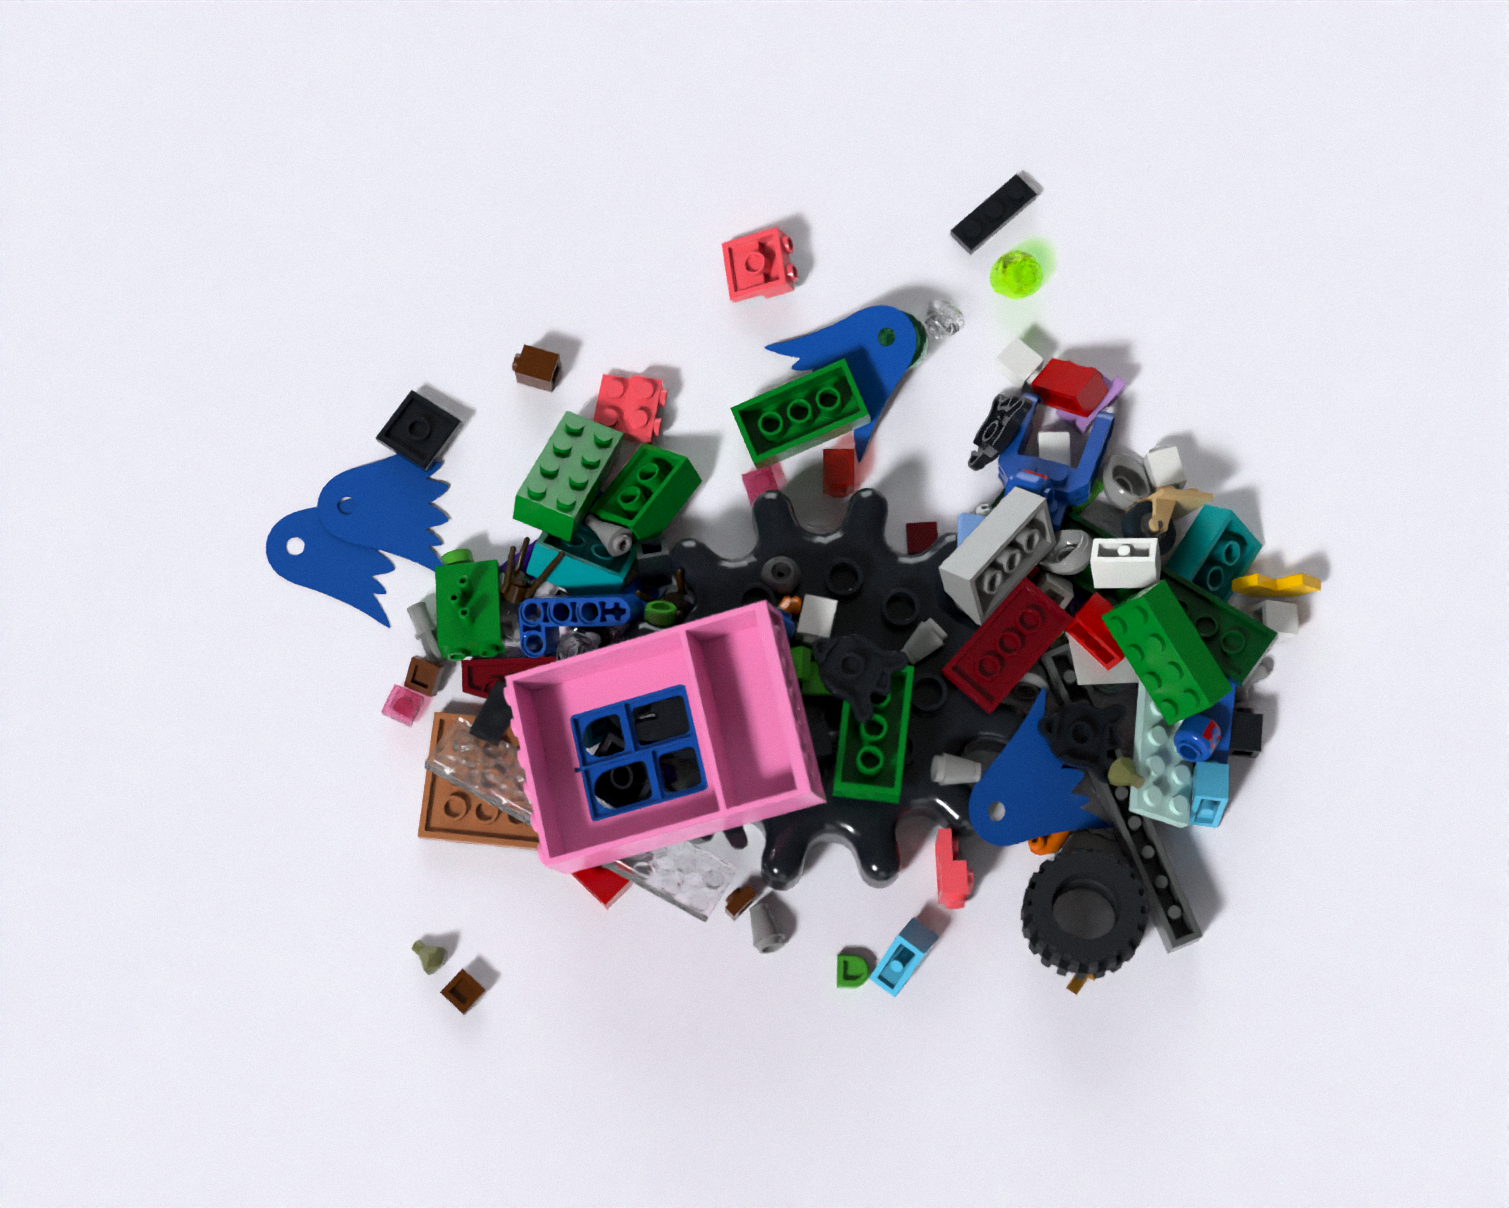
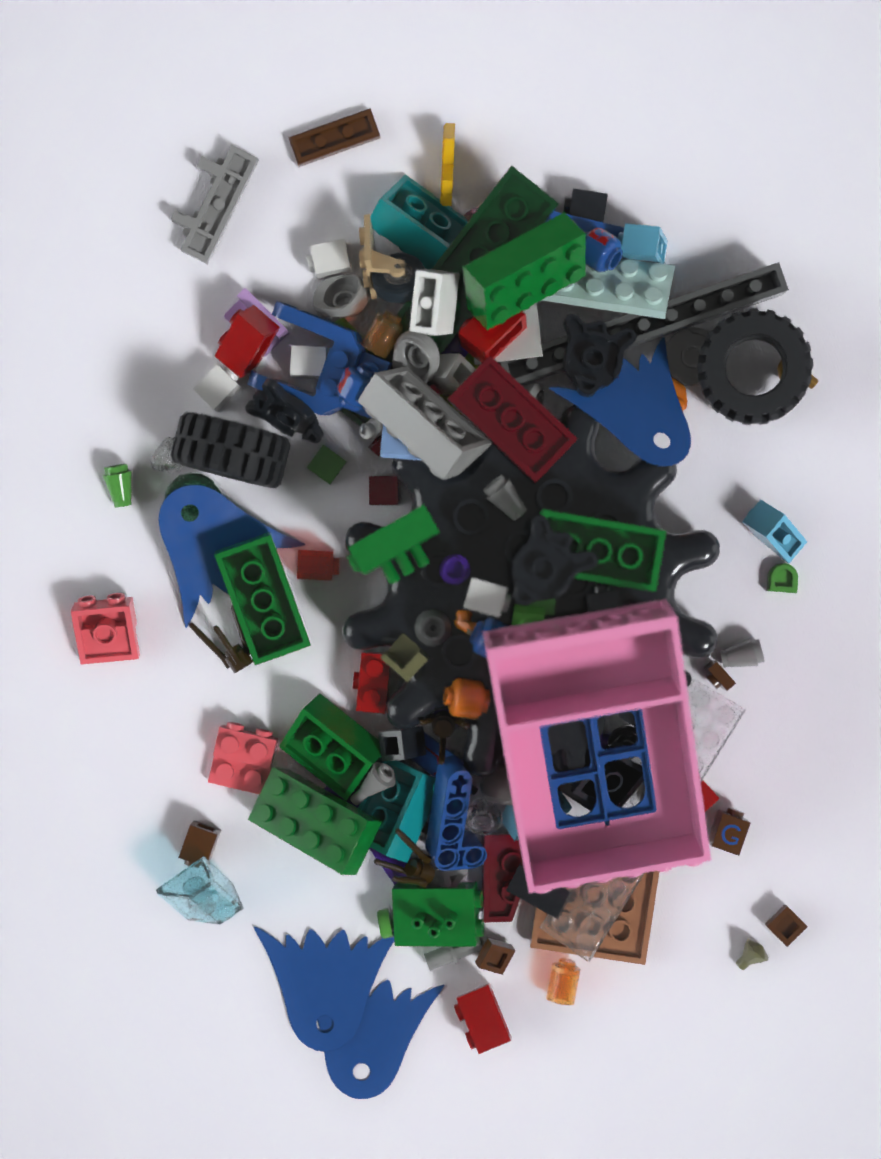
camera: 90 degrees left, 15 degrees up
(356, 664) = (483, 1019): none -> red brick
(396, 750) = (563, 982): none -> clear orange brick
(402, 705) = (521, 975): clear pink plate -> none
(419, 431) = (256, 956): black plate -> none
(487, 369) = (202, 894): none -> clear light blue slope
(568, 921) = (729, 830): none -> reddish brown brick
(660, 613) = (458, 740): bright green tile -> none
(706, 604) = (467, 698): none -> orange head
(720, 532) = (372, 683): none -> red brick
(737, 391) = (234, 657): none -> dark brown plant
(746, 548) = (405, 657): none -> olive panel
(758, 482) = (324, 638): clear pink plate -> none
(844, 589) = (454, 569): none -> dark purple plate
(869, 525) = (393, 543): none -> green piece
(911, 272) = (119, 484): none -> bright green cone
(945, 479) = (326, 464): none -> bright green tile
(953, 877) = (712, 483): coral plate -> none
(954, 370) = (230, 449): none -> black tyre
(954, 770) = (629, 477): light grey cone -> none
(993, 214) = (61, 401): black plate -> none
(1016, 275) = (126, 384): clear neon green hair -> none
(1088, 517) = (383, 333): none -> clear orange brick
(1124, 773) = (632, 319): olive rock -> none
(1190, 349) = (228, 184): none -> light grey hinge
(1278, 616) = (482, 170): white brick -> none
(1294, 471) = (334, 137): none -> reddish brown tile

